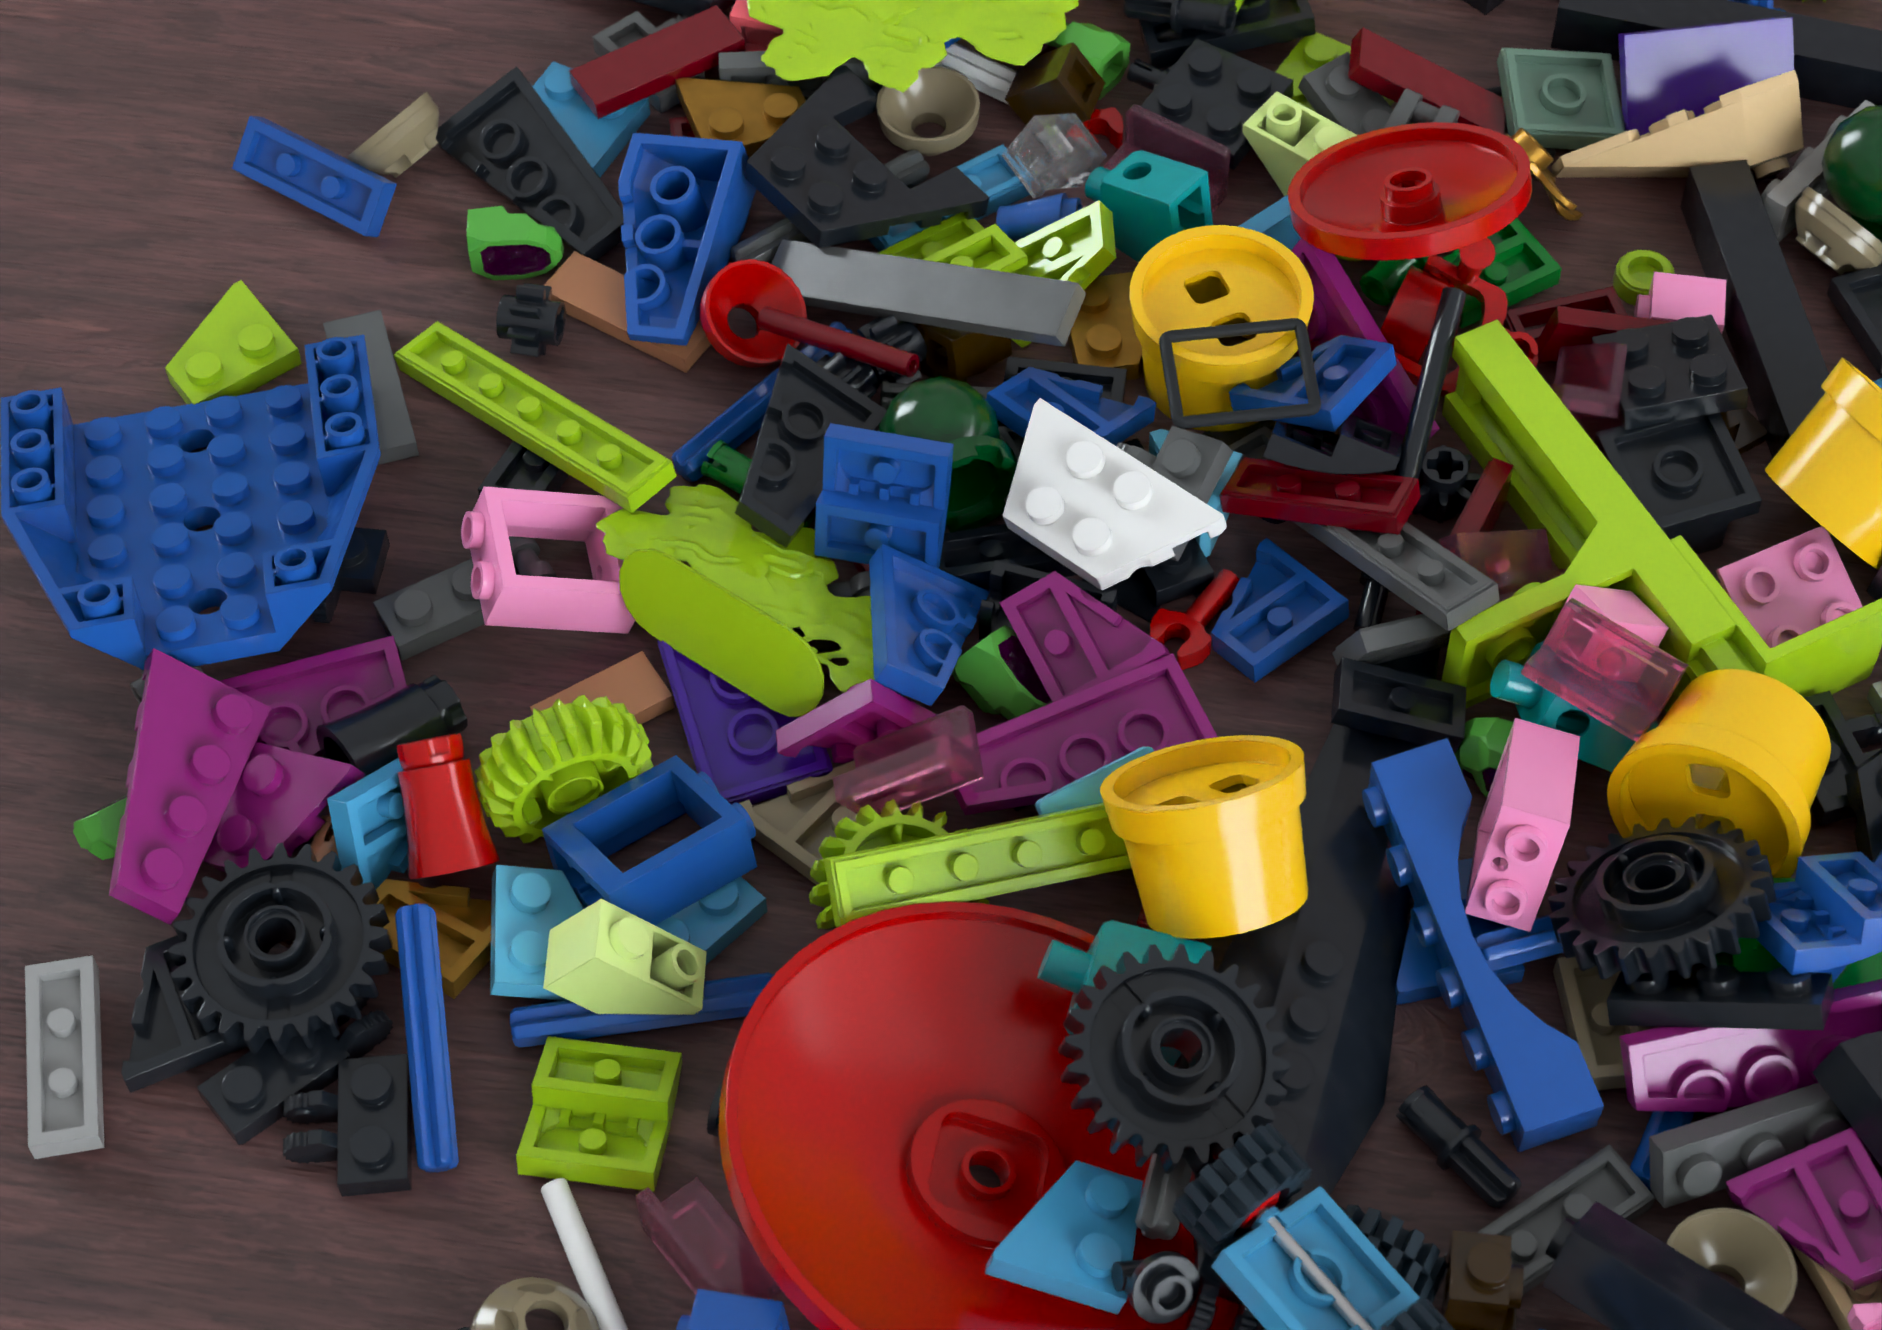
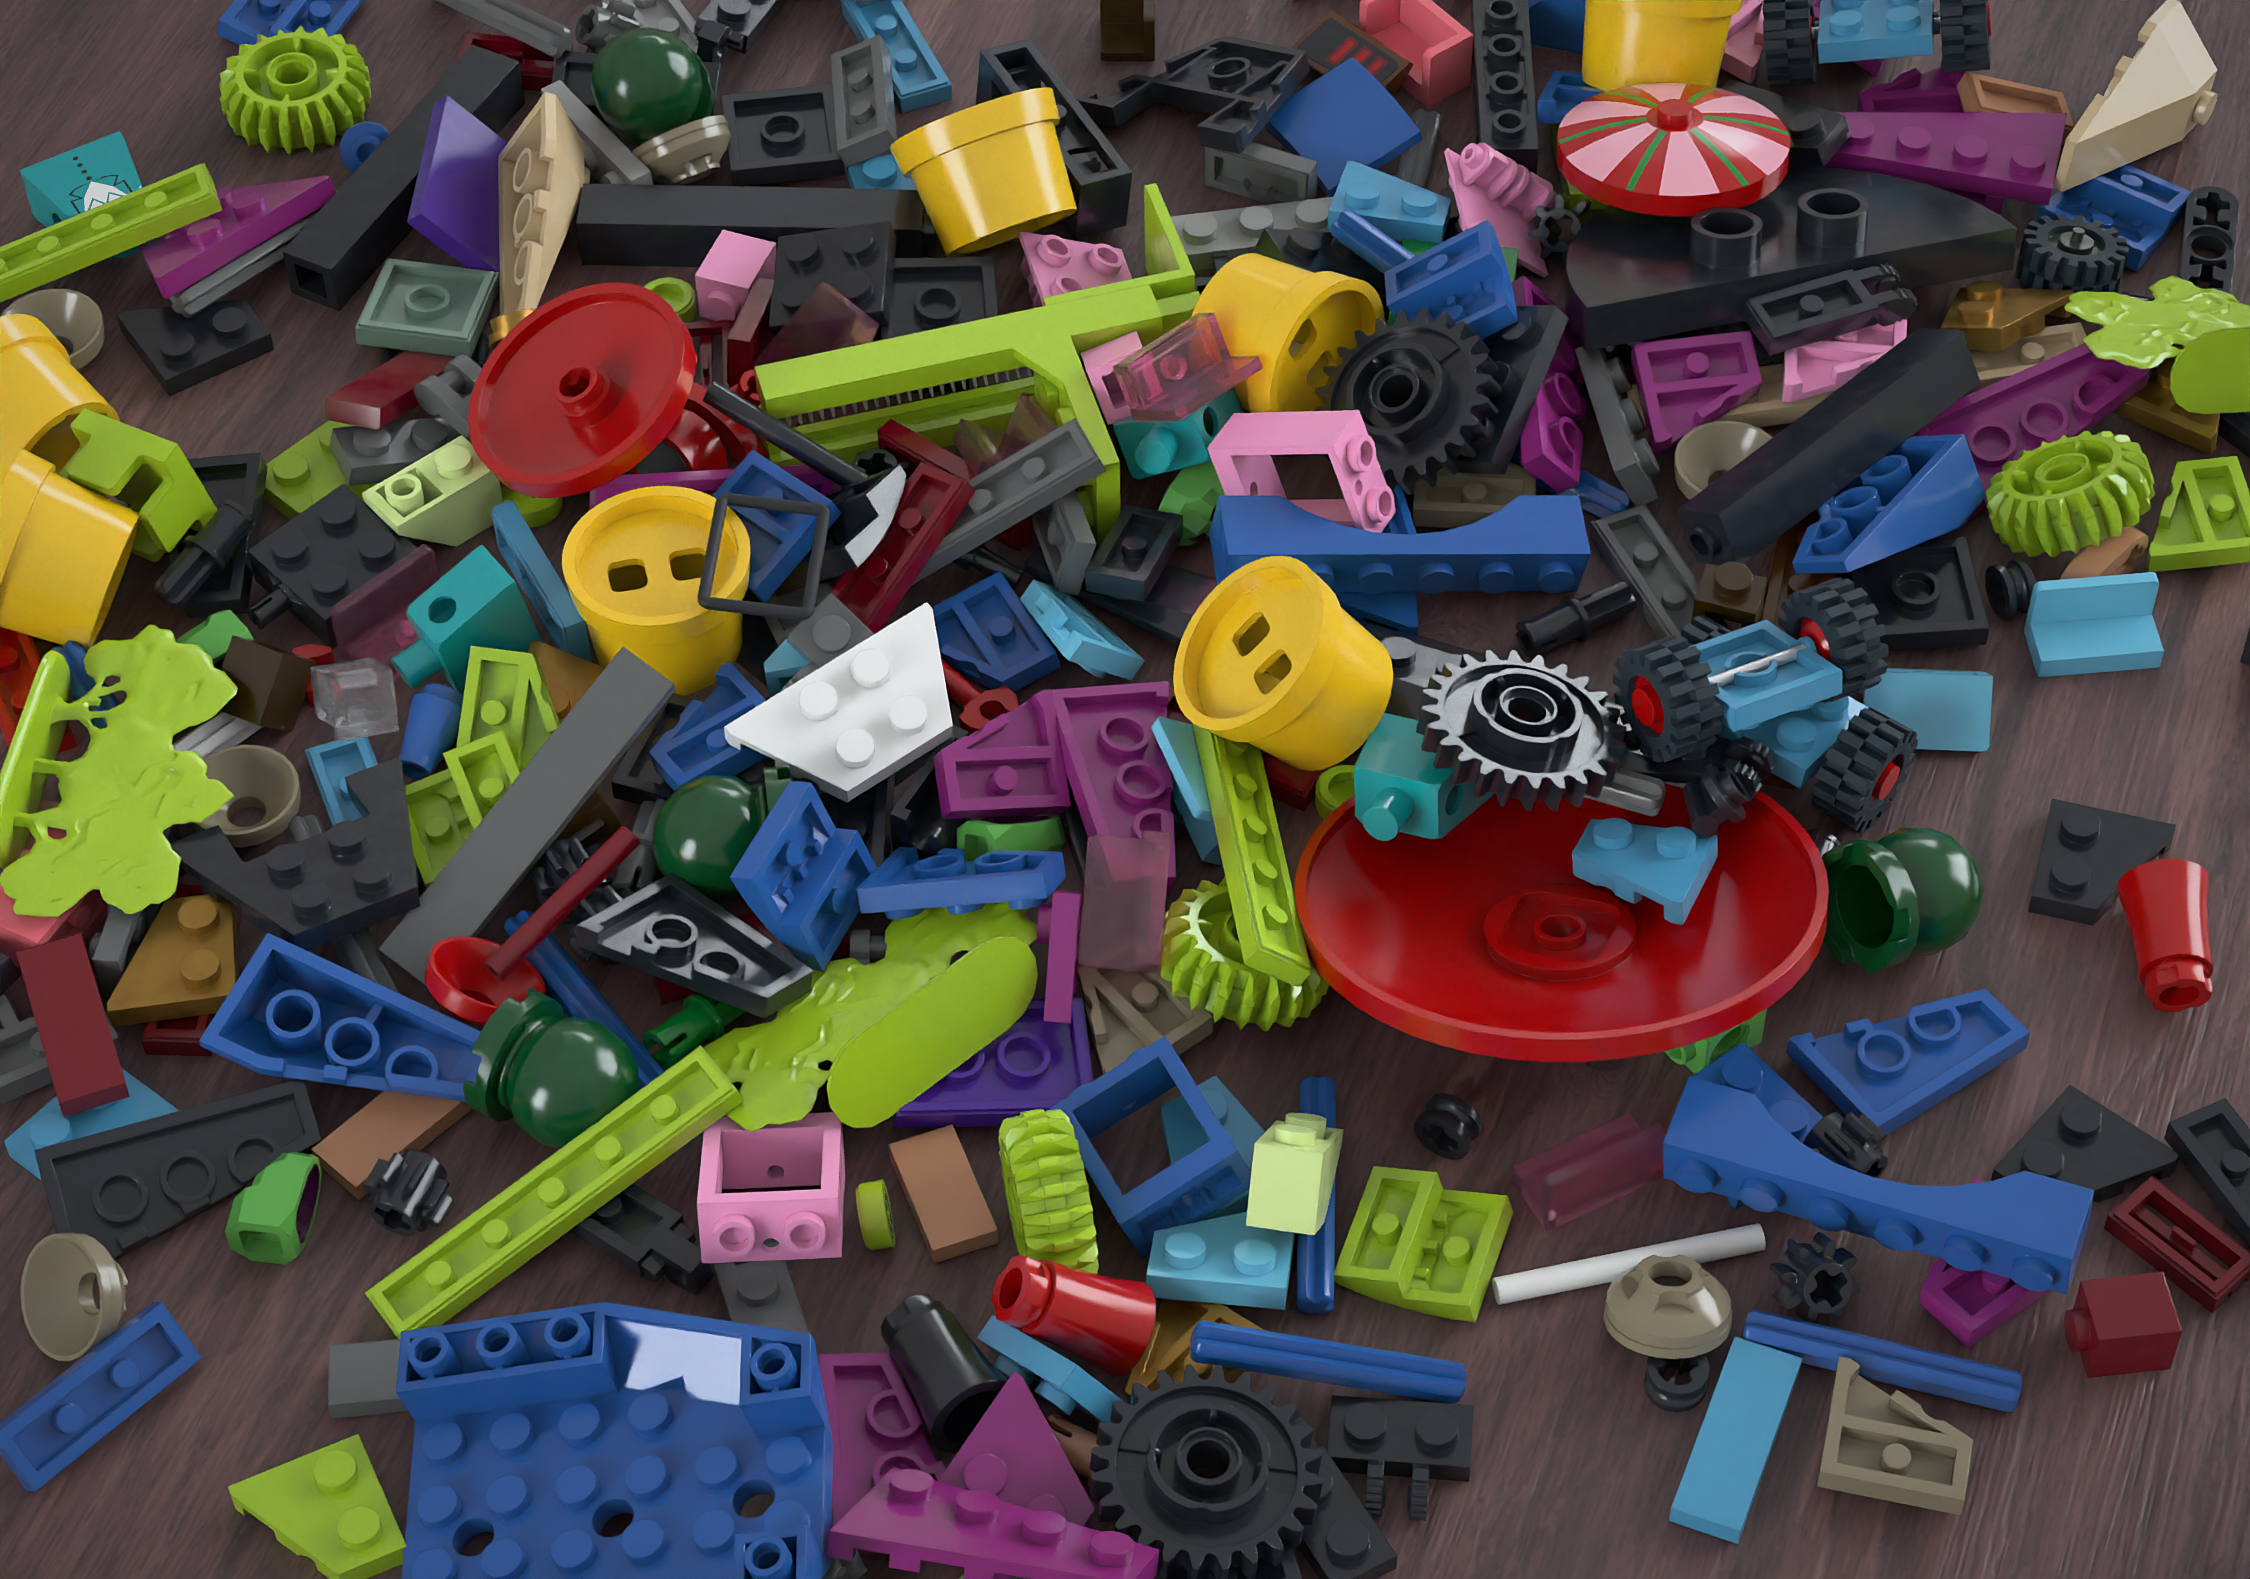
camera: 80 degrees left, 5 degrees down
(559, 655) = (875, 1215): none -> lime tile
(654, 373) = (549, 1070): none -> dark green tile
(1282, 679) = (1079, 633): none -> medium azure wing

